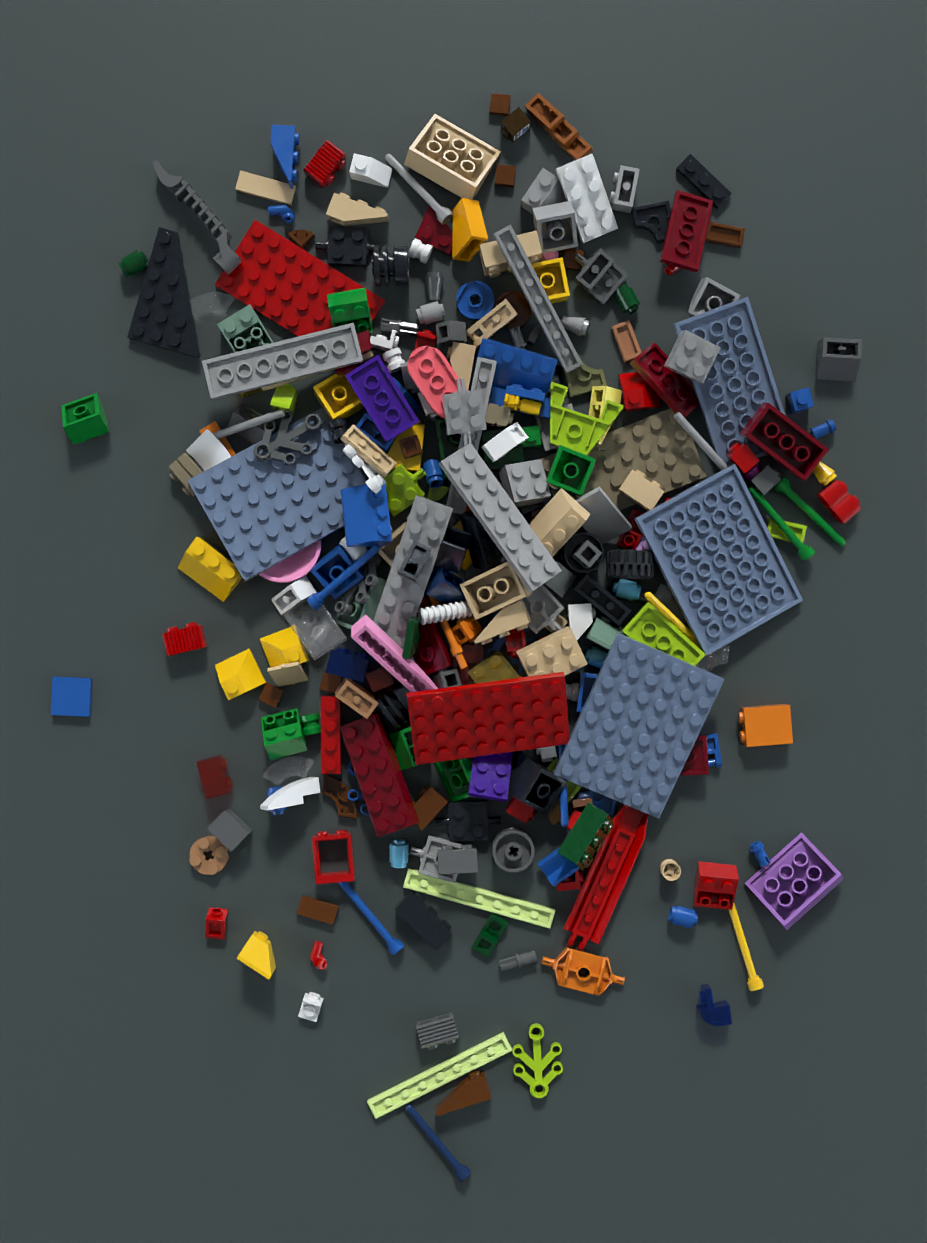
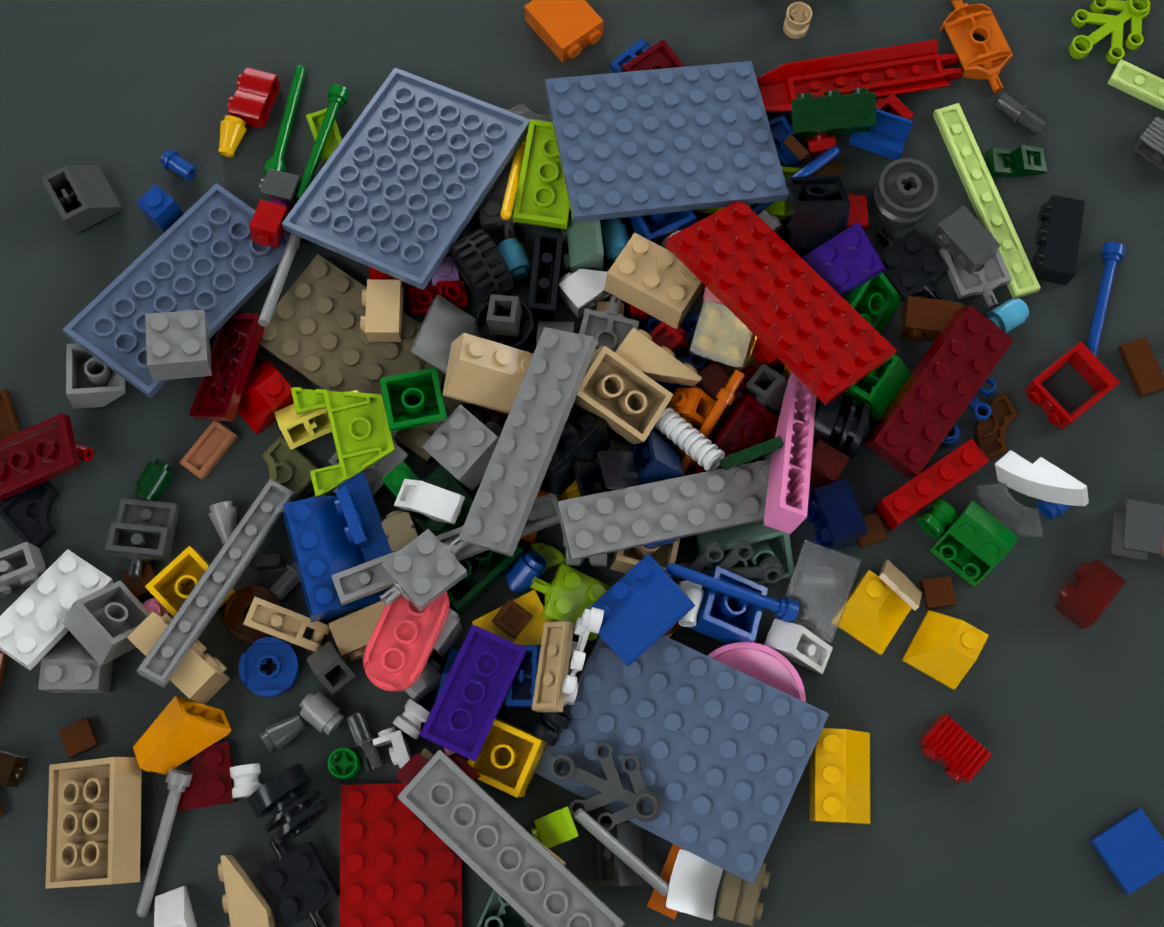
camera: 125 degrees left, 15 degrees down
(349, 308) = (381, 818): green slope -> none
(356, 697) = (870, 475): medium nougat panel -> none
(392, 306) = (341, 760): none -> green wheel
(414, 561) = (657, 502): black slope -> none
(426, 338) = (365, 695): red bracket -> none
(525, 405) = (367, 512): yellow bar -> none
(784, 441) = (219, 188): dark red brick -> none

